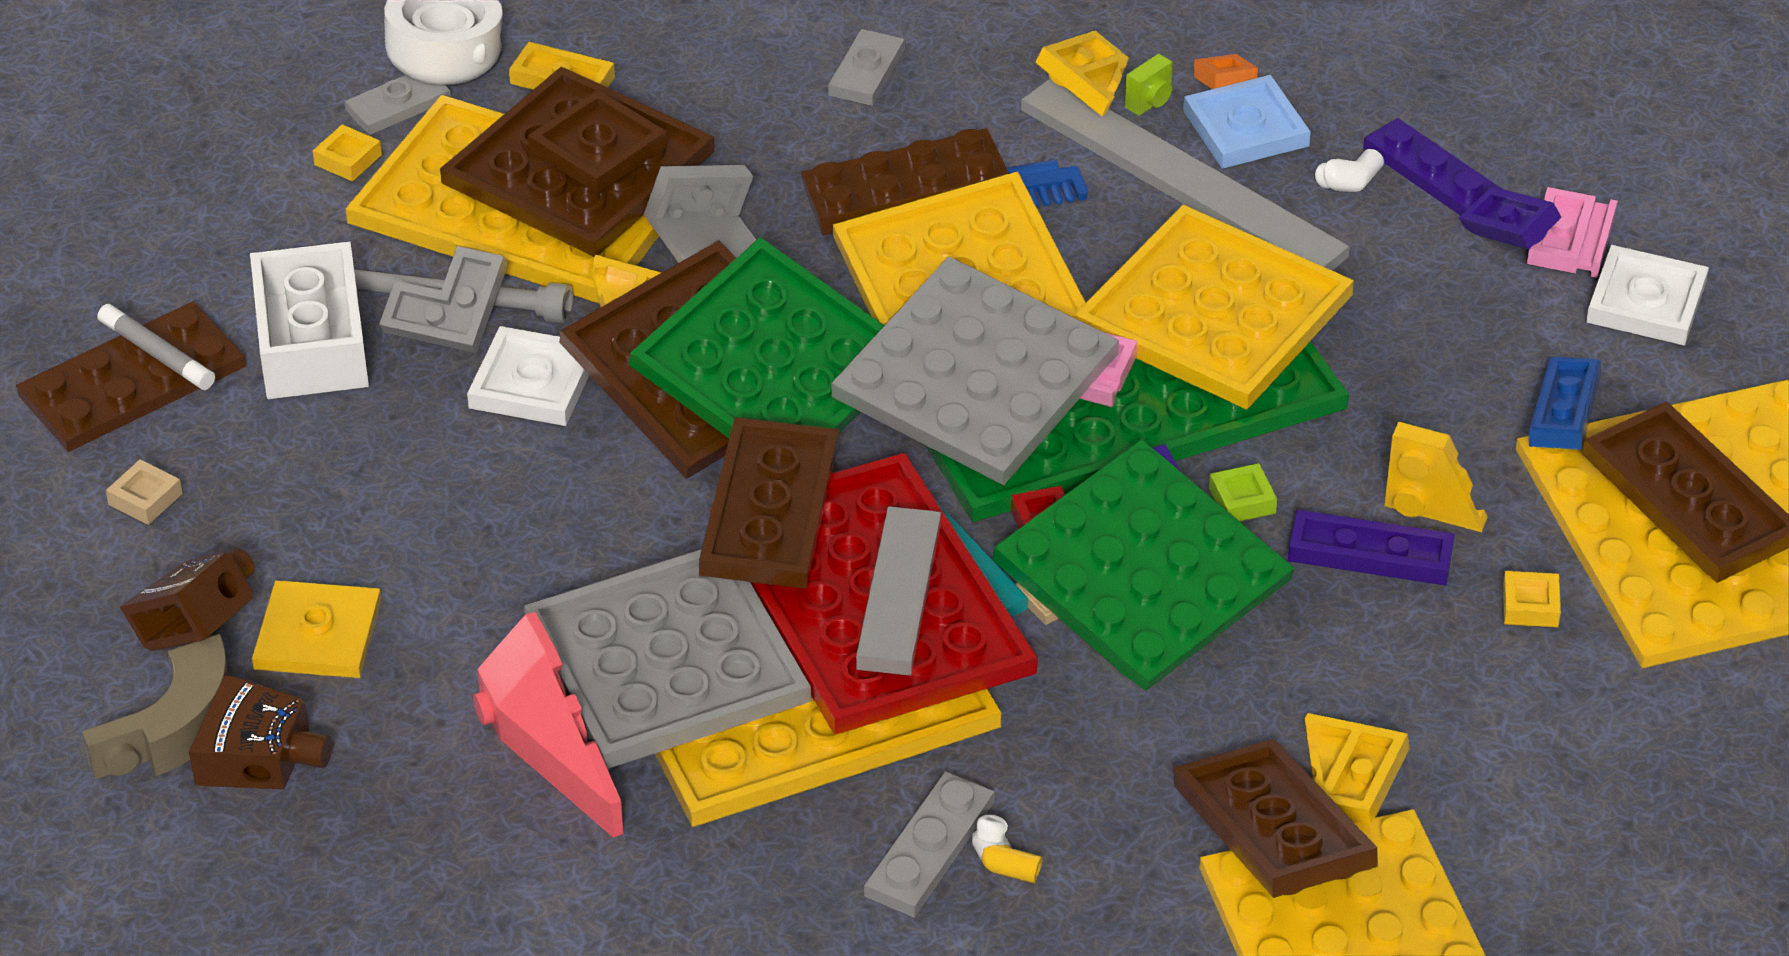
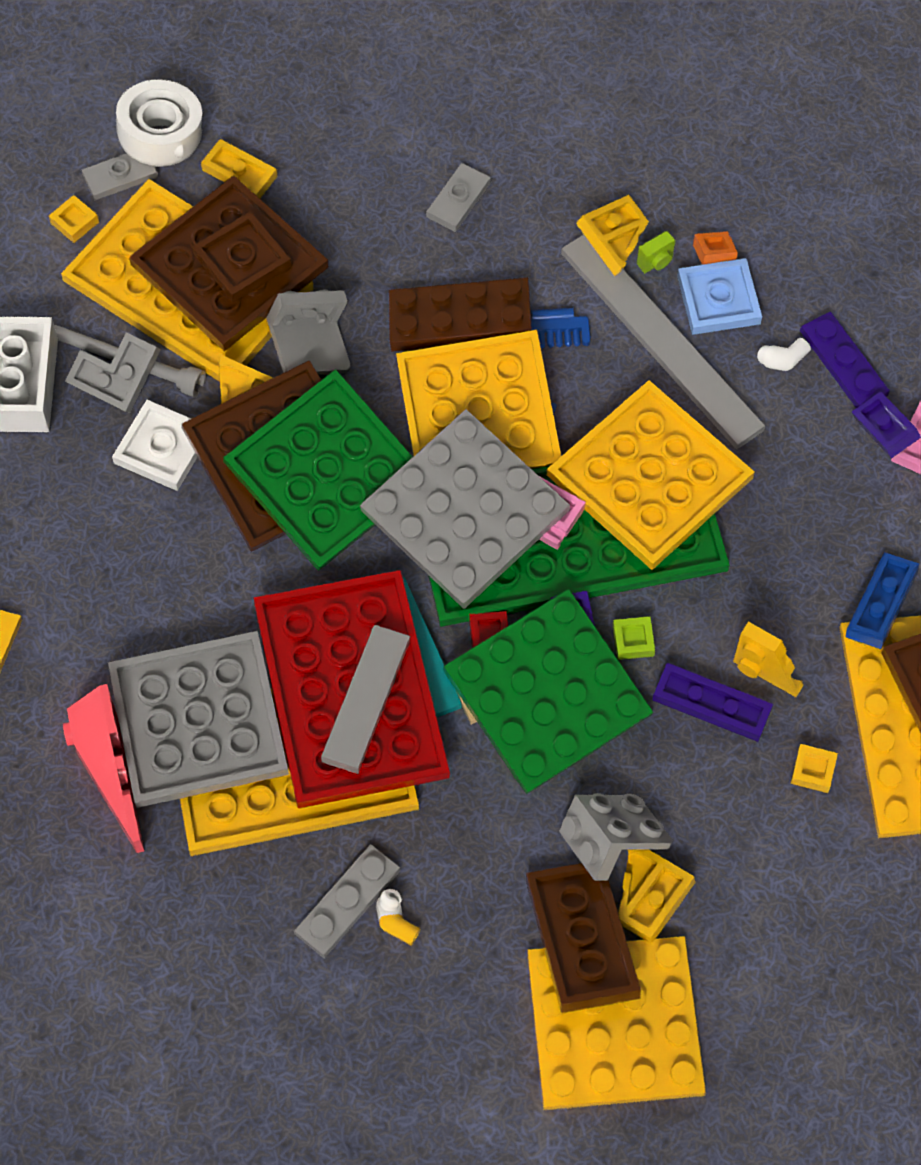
camera: 10 degrees right, 20 degrees up
(769, 503) = (292, 607): reddish brown plate -> none
(1264, 700) = (605, 824): none -> light grey bracket

